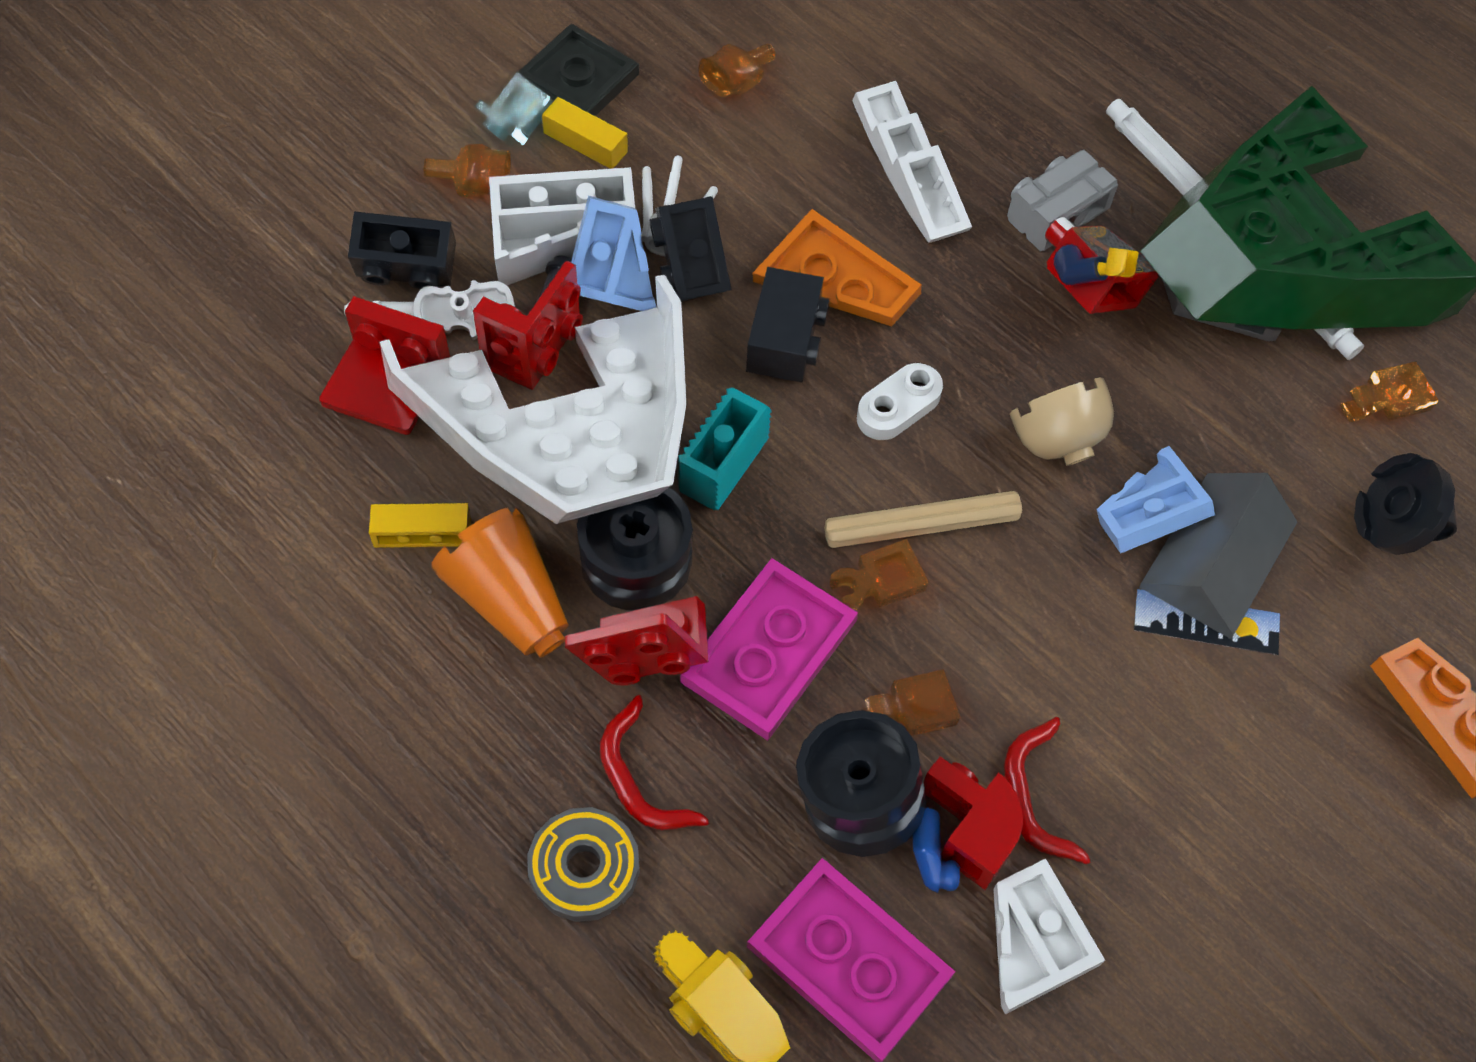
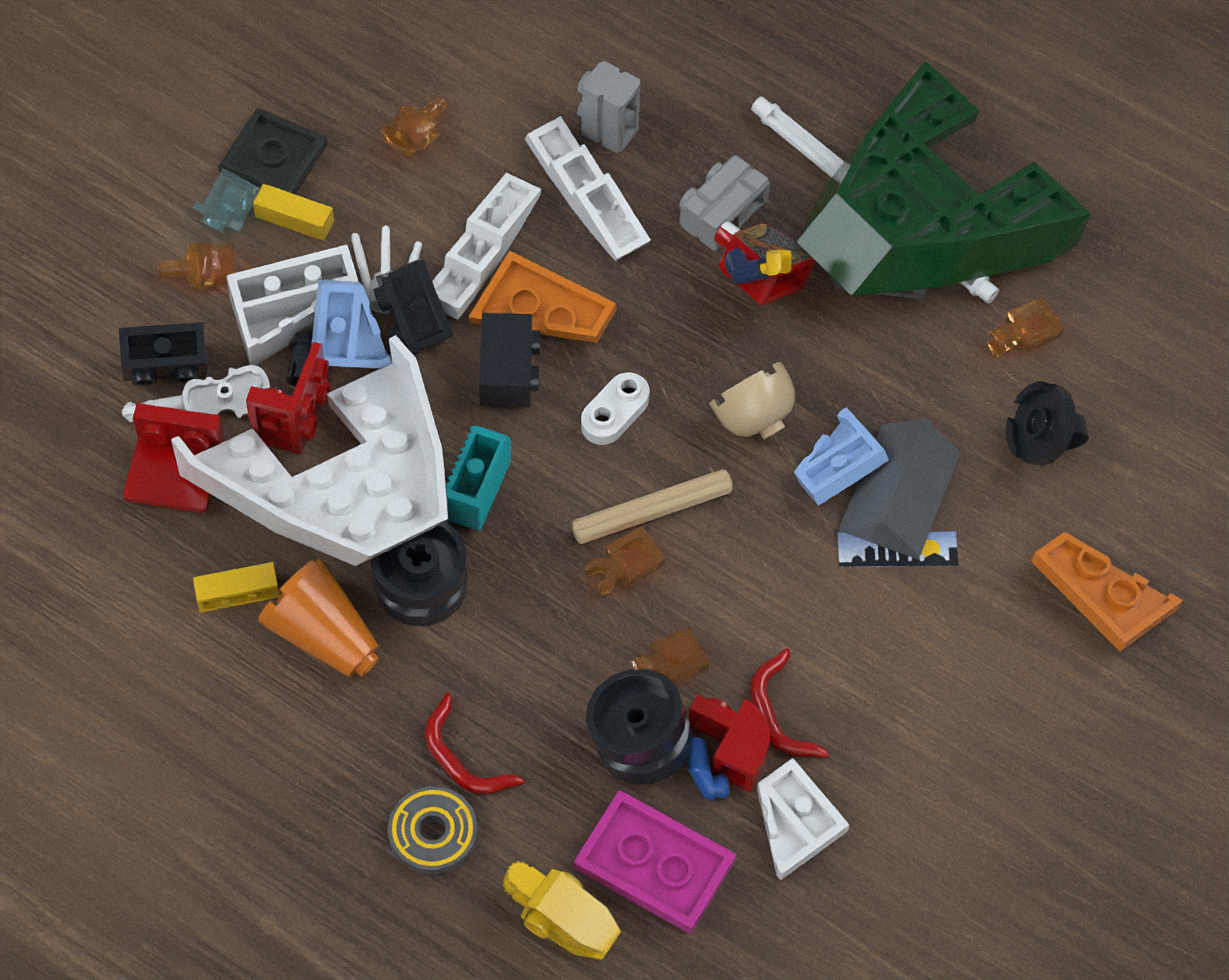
camera: 10 degrees left, 0 degrees up
(645, 642) = (446, 648): red bracket -> none
(770, 648) = (545, 635): dark pink plate -> none
(788, 196) = (484, 243): none -> white slope
(952, 76) = (609, 106): none -> light grey brick

